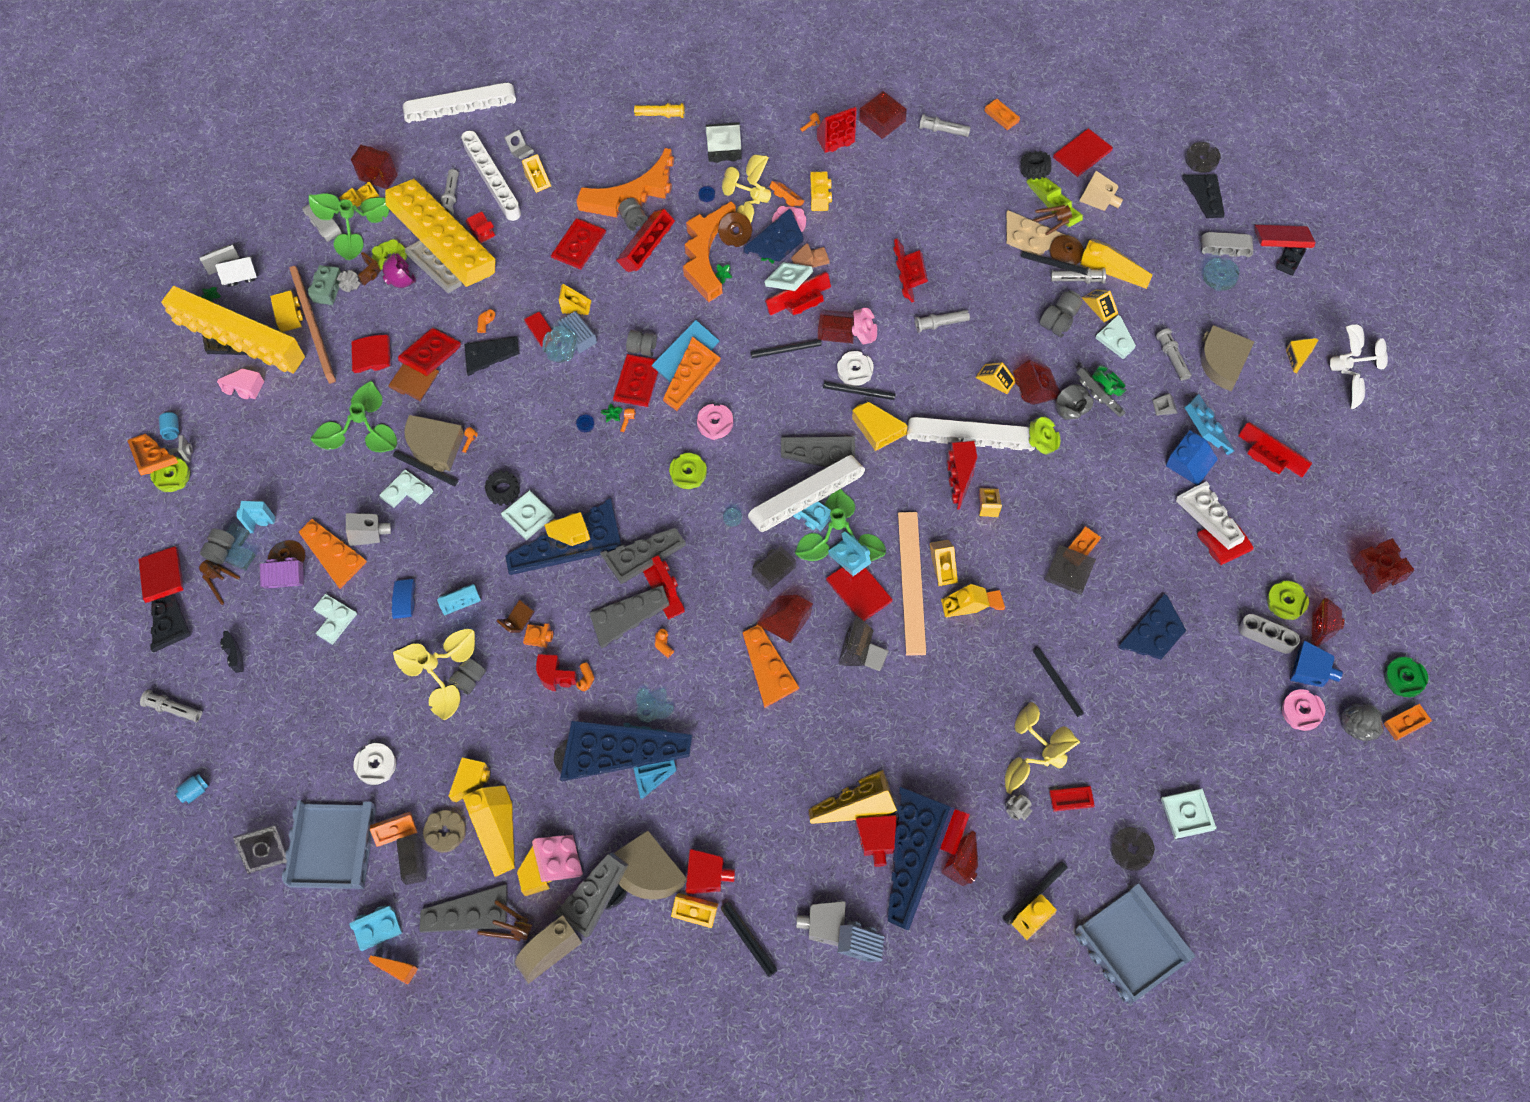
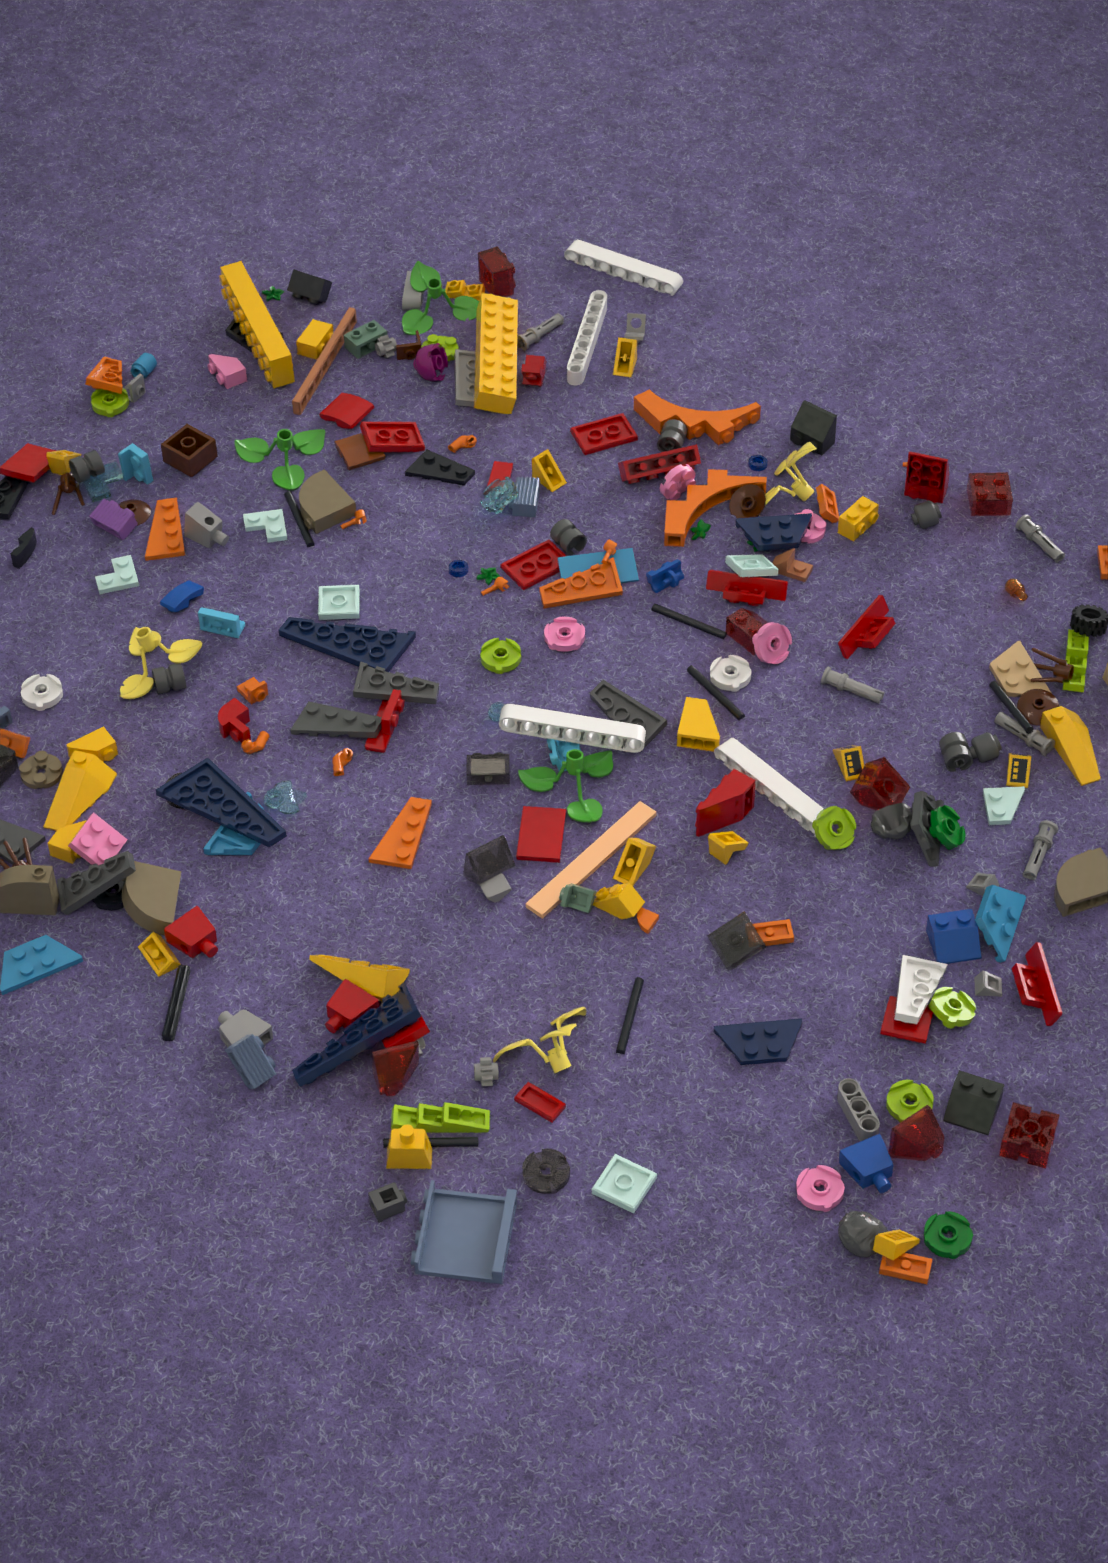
camera: 40 degrees right, 15 degrees down
(186, 554) = (59, 461): none -> yellow slope
(222, 254) = (313, 268): light grey slope -> none
(283, 472) = (189, 450): none -> reddish brown brick
(507, 496) = (340, 561): black tyre -> none
(518, 618) = (250, 668): reddish brown bracket -> none
(568, 529) = (355, 628): yellow slope -> none
(608, 997) = (34, 962): none -> dark azure wing
(665, 110) = (796, 376): yellow pin -> none
(676, 242) = (677, 481): none -> bright pink plate
(684, 331) = (610, 547): none -> orange hand
(740, 325) = (666, 576): none -> blue hips
(786, 616) = (457, 810): clear red slope -> none
(850, 554) = (561, 801): medium azure bracket -> none
(858, 157) = (926, 514): none -> dark grey head
(937, 620) = (577, 897): none -> sand green bracket
(966, 173) = (1015, 587): none -> clear orange cylinder
(1024, 870) = (444, 1119): none -> lime slope
(1061, 958) = (387, 1201): none -> dark grey brick
(1241, 476) = (987, 984): none -> light grey slope
(1253, 514) = (943, 1003): none -> lime plate
(1325, 569) = (973, 1102): none -> pearl dark grey slope
(1393, 715) = (894, 1243): none -> yellow slope

